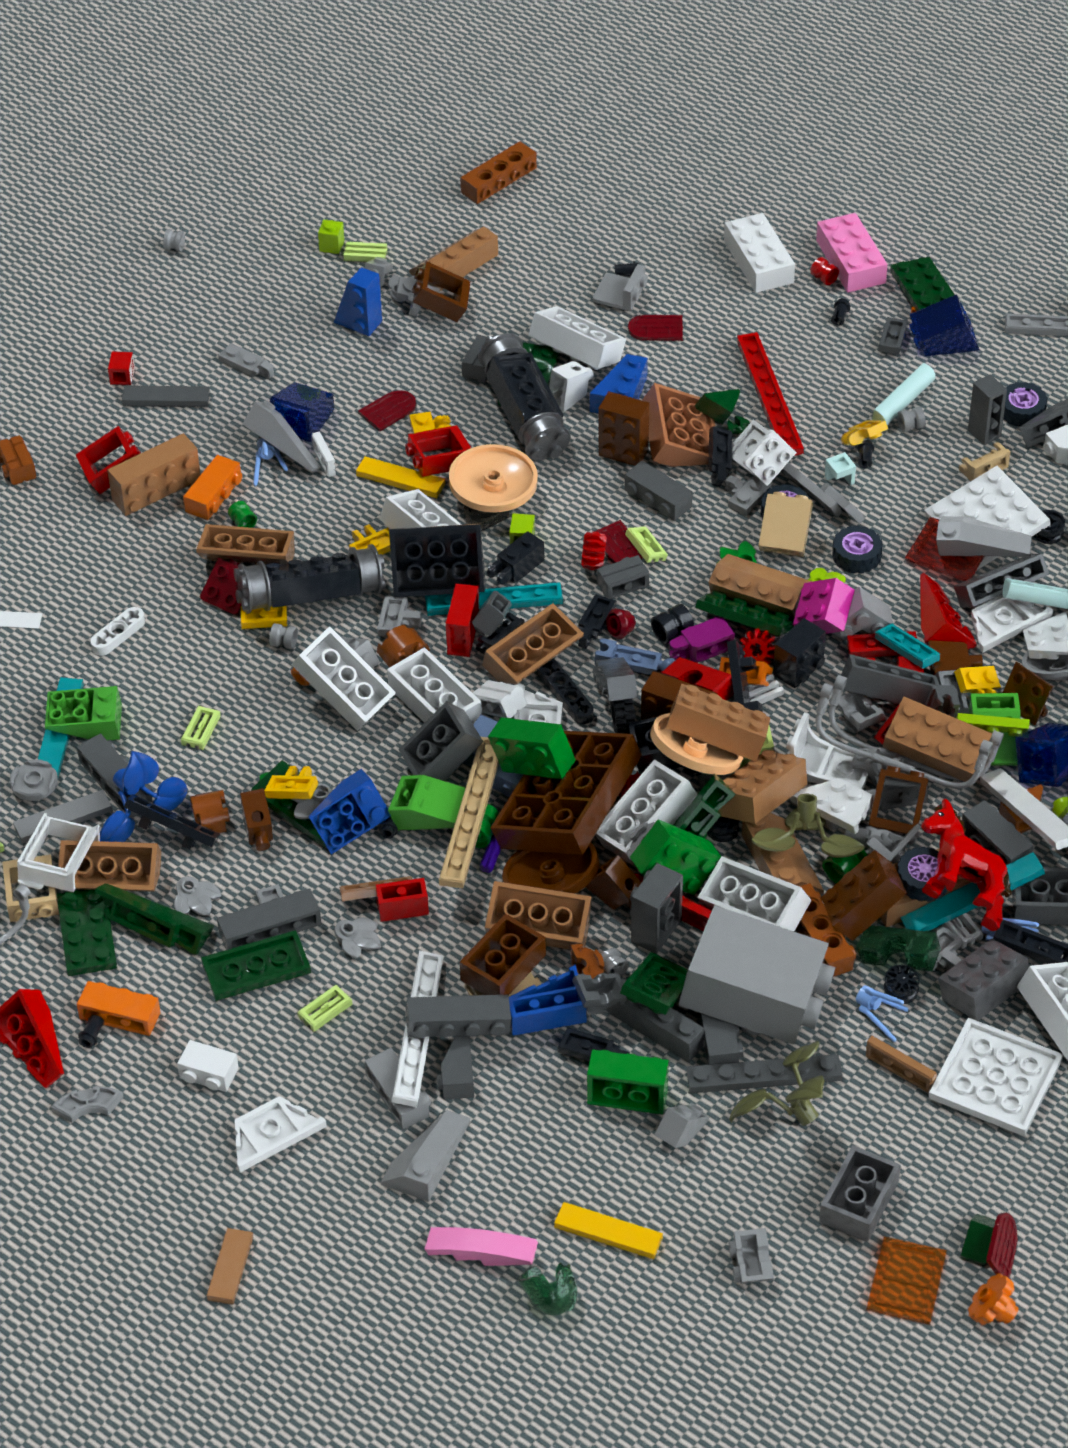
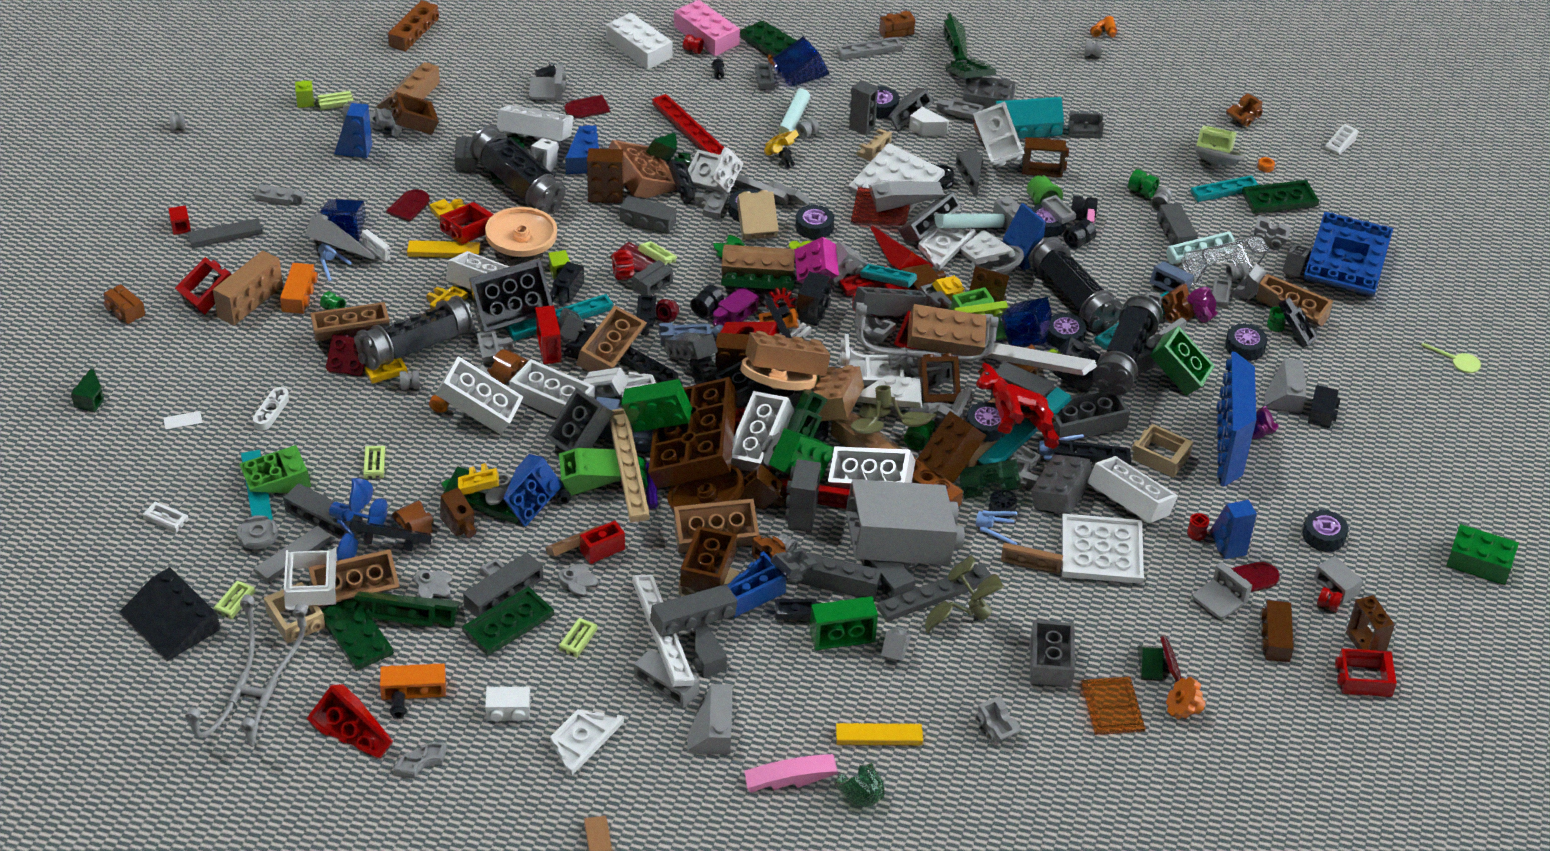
camera: 25 degrees left, 5 degrees down
(655, 984) = (832, 548): dark green plate -> none
(839, 467) = (777, 169): light aqua panel -> none

